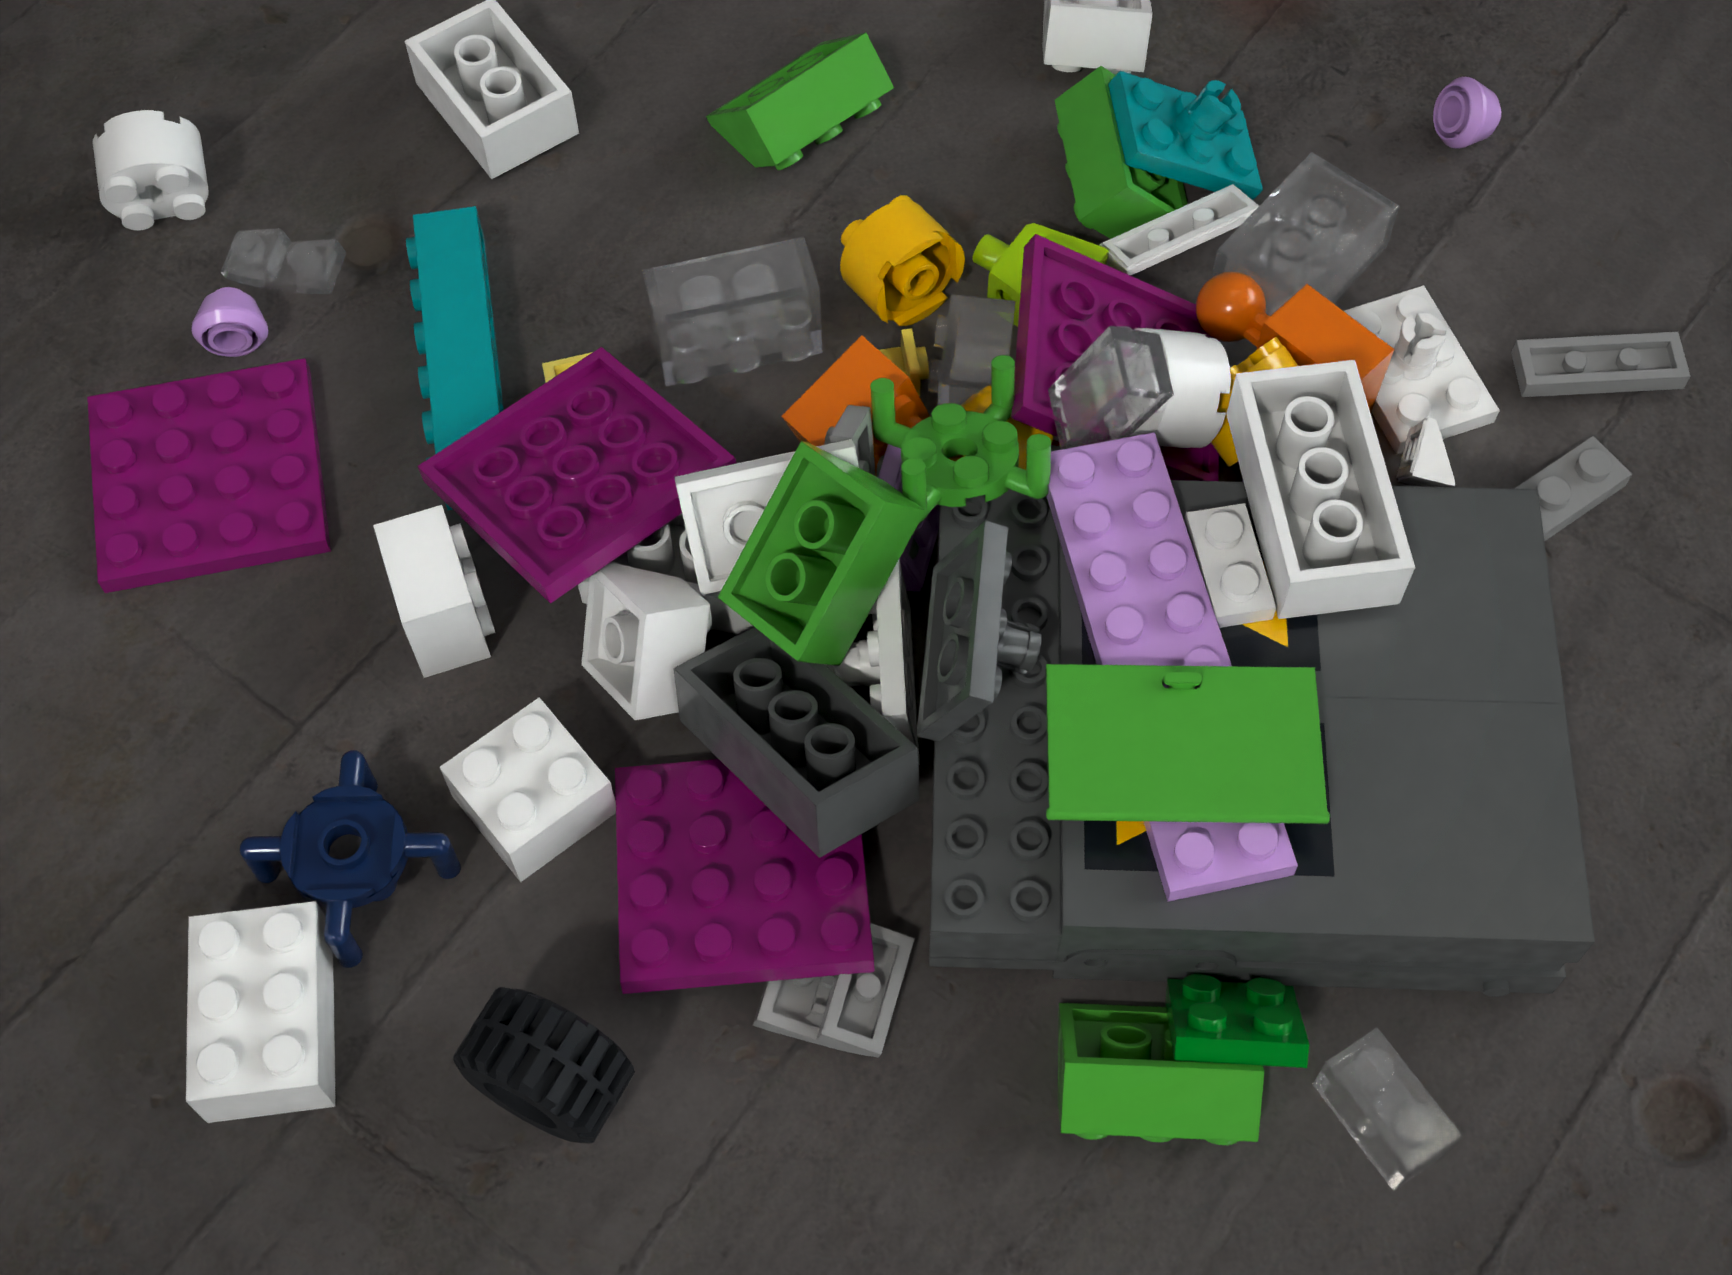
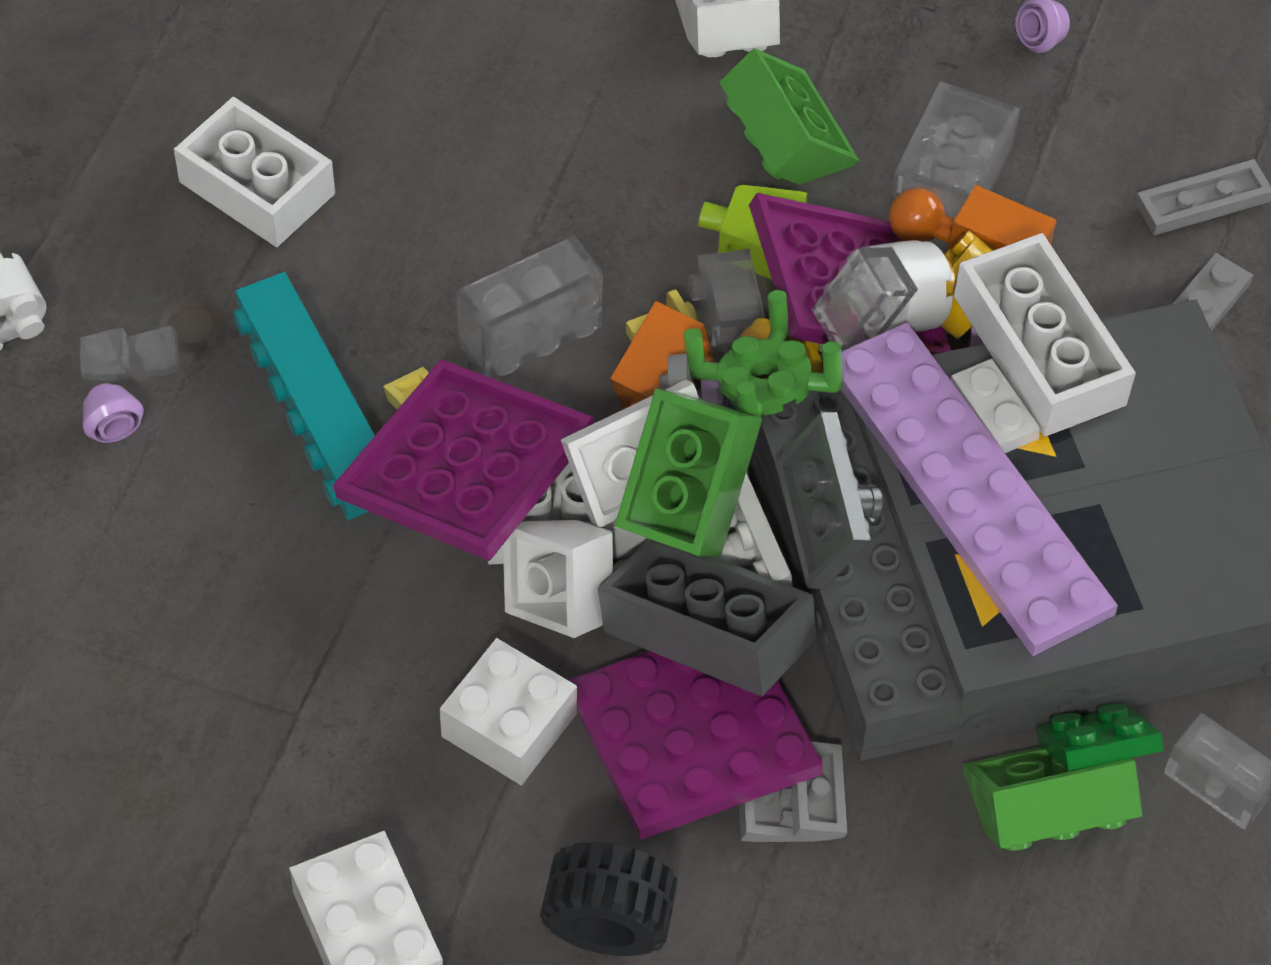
camera: 20 degrees left, 5 degrees down
(206, 475) = (138, 539): magenta plate -> none
(353, 881) = (394, 814): dark blue plate -> none
(435, 590) = (377, 579): white brick -> none
(804, 102) = (513, 127): bright green slope -> none
(900, 261) = (646, 238): yellow brick -> none
(1179, 230) = (856, 164): white slope -> none
(1185, 134) = (835, 88): teal plate -> none
(1214, 753) = (1034, 541): bright green container -> none
(1425, 457) = (1106, 292): white slope -> none
(1426, 372) = (1083, 236): white plate -> none

